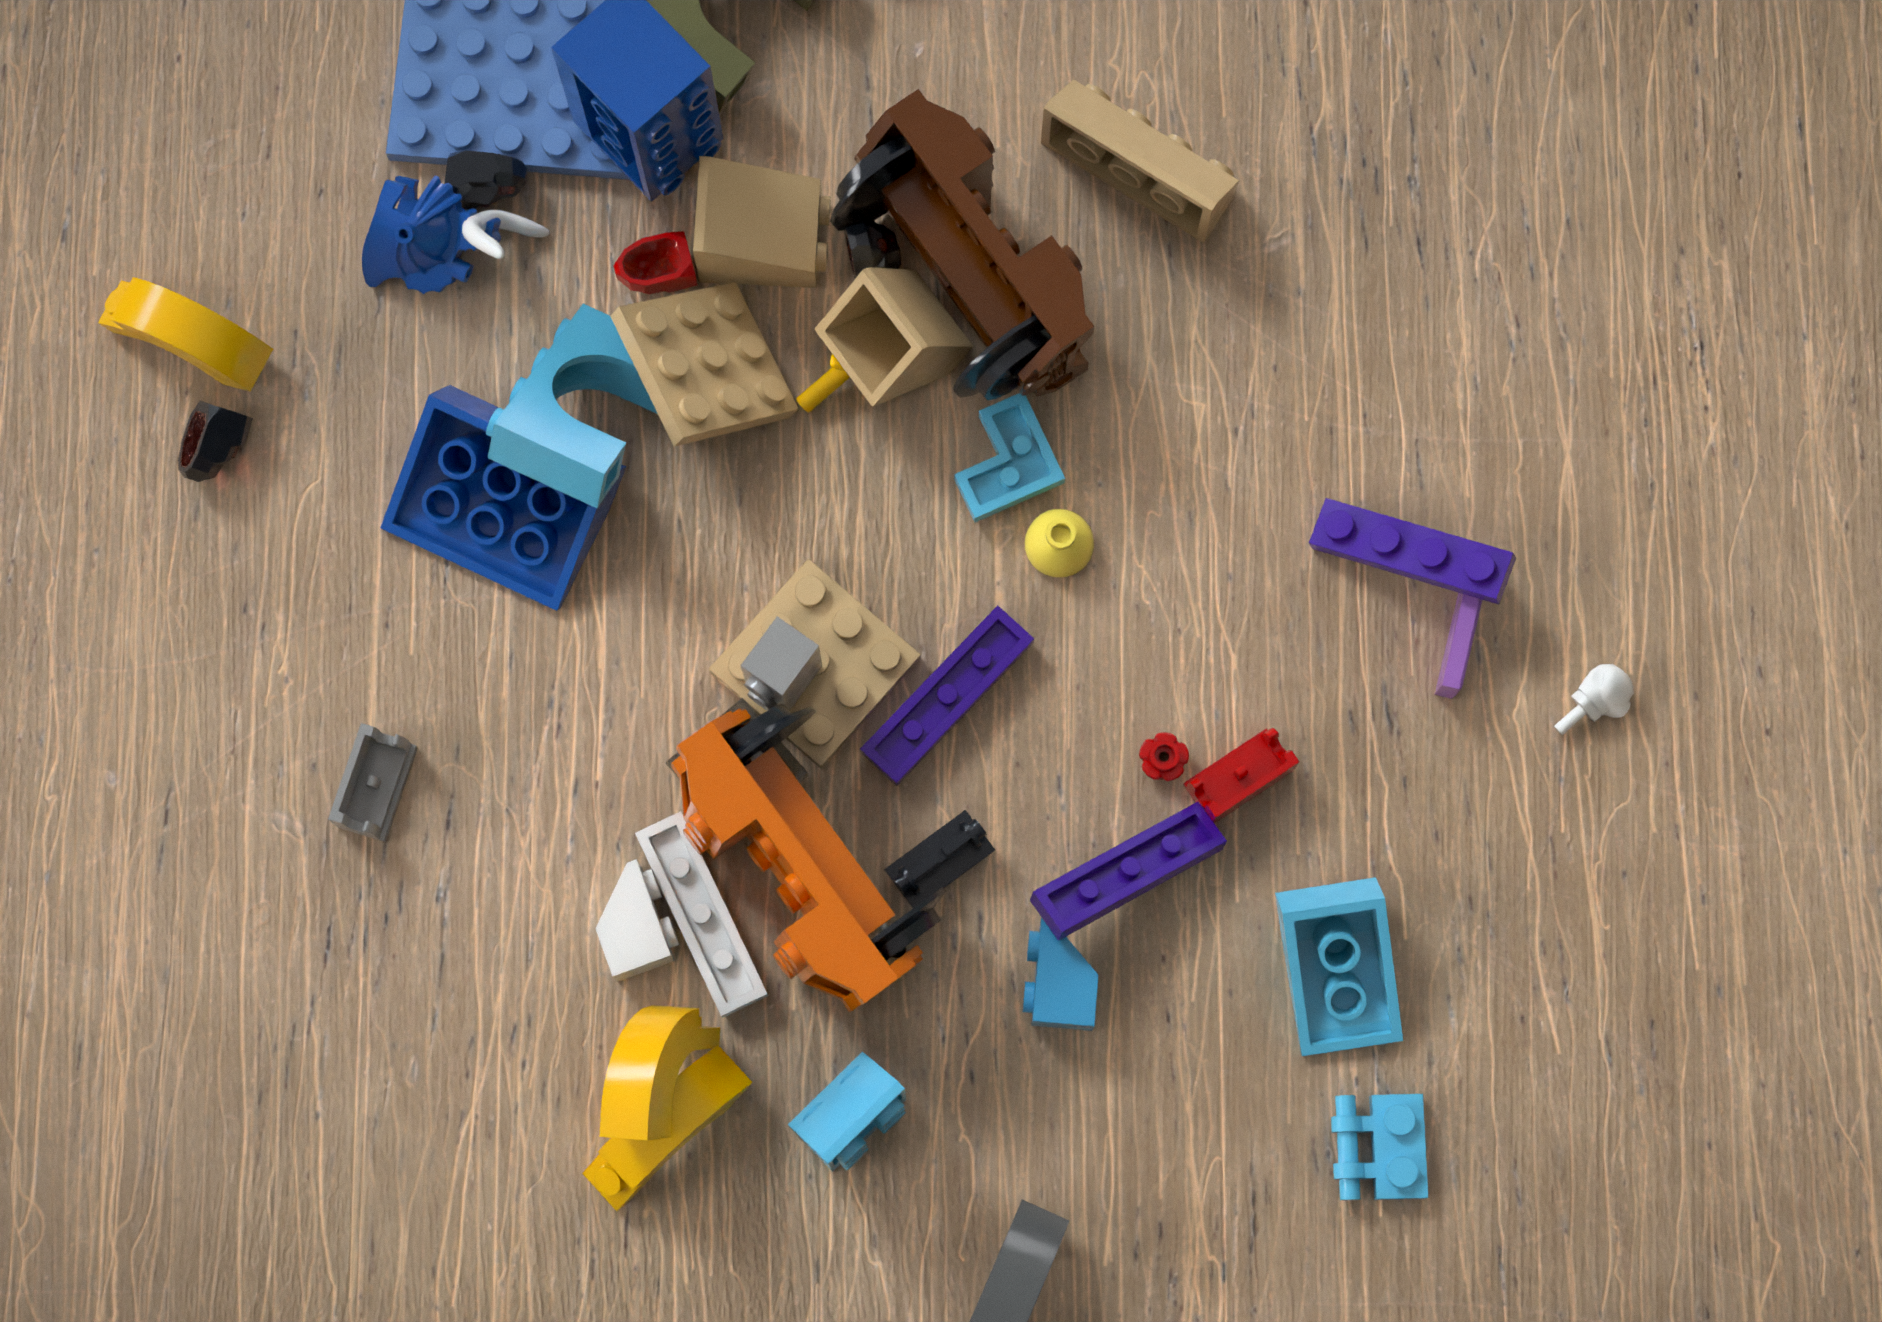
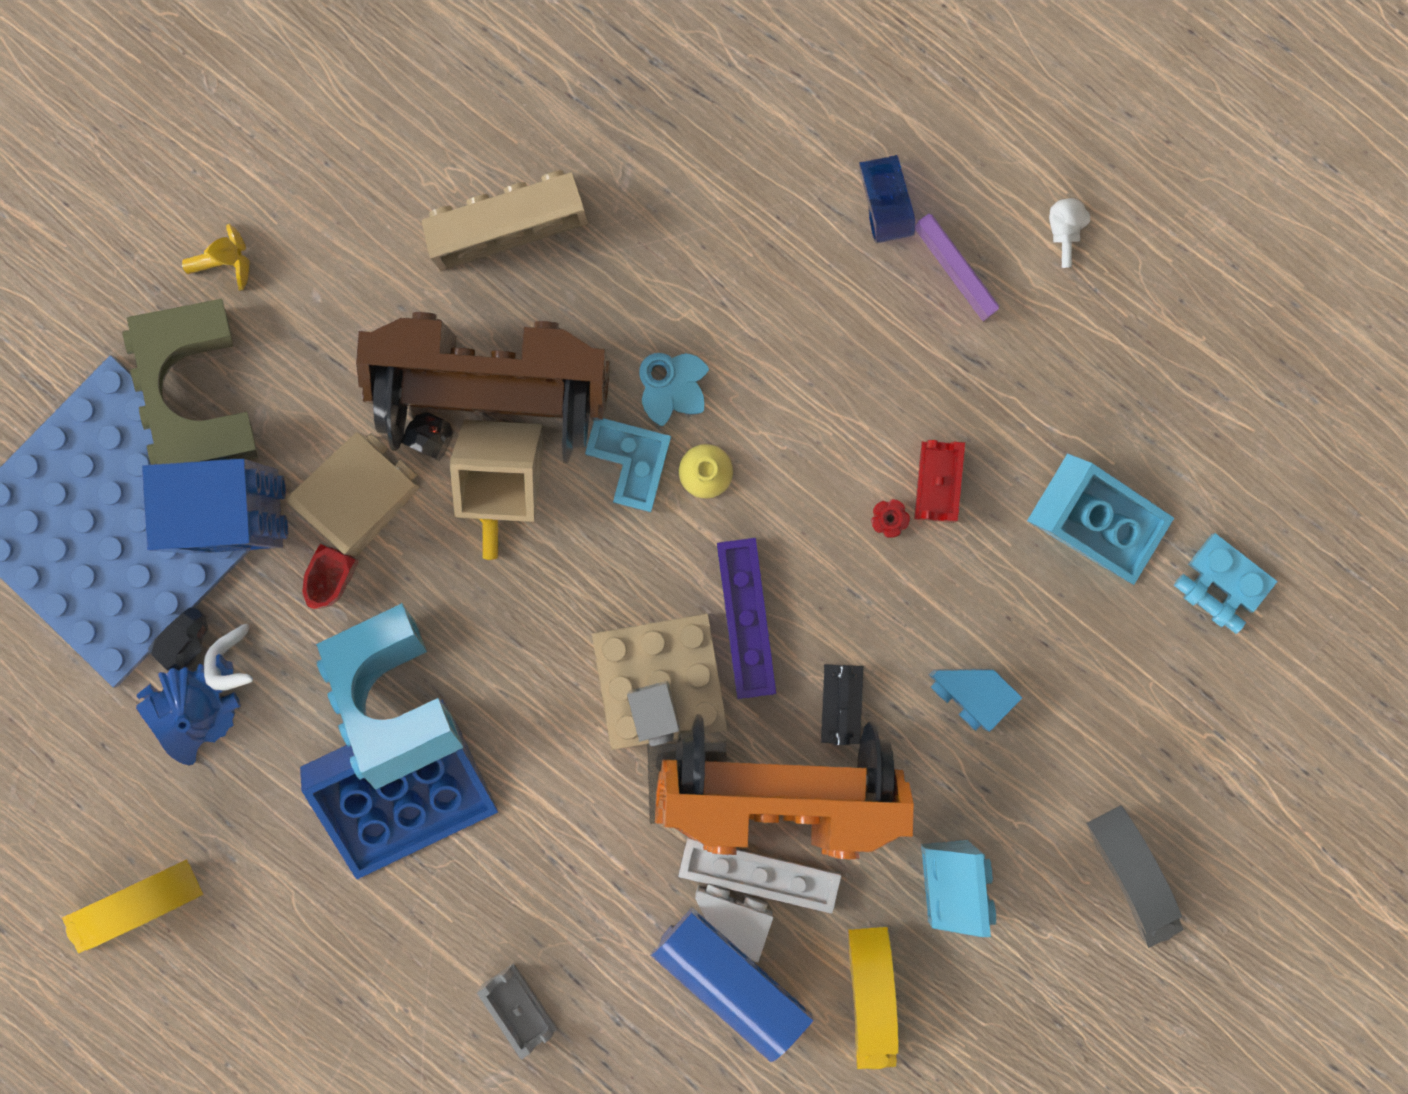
camera: 50 degrees left, 10 degrees up
(211, 440) = (215, 942): black rock -> none
(568, 964) = (732, 985): none -> blue brick
(645, 1070) = (836, 991): yellow arch -> none
(704, 363) = (417, 601): tan plate -> none
(1111, 450) = (676, 390): none -> medium azure plate
(1127, 871) = (945, 600): dark purple plate -> none
(1412, 551) = (891, 263): dark purple plate -> none
(1473, 496) = (888, 199): none -> clear blue plate

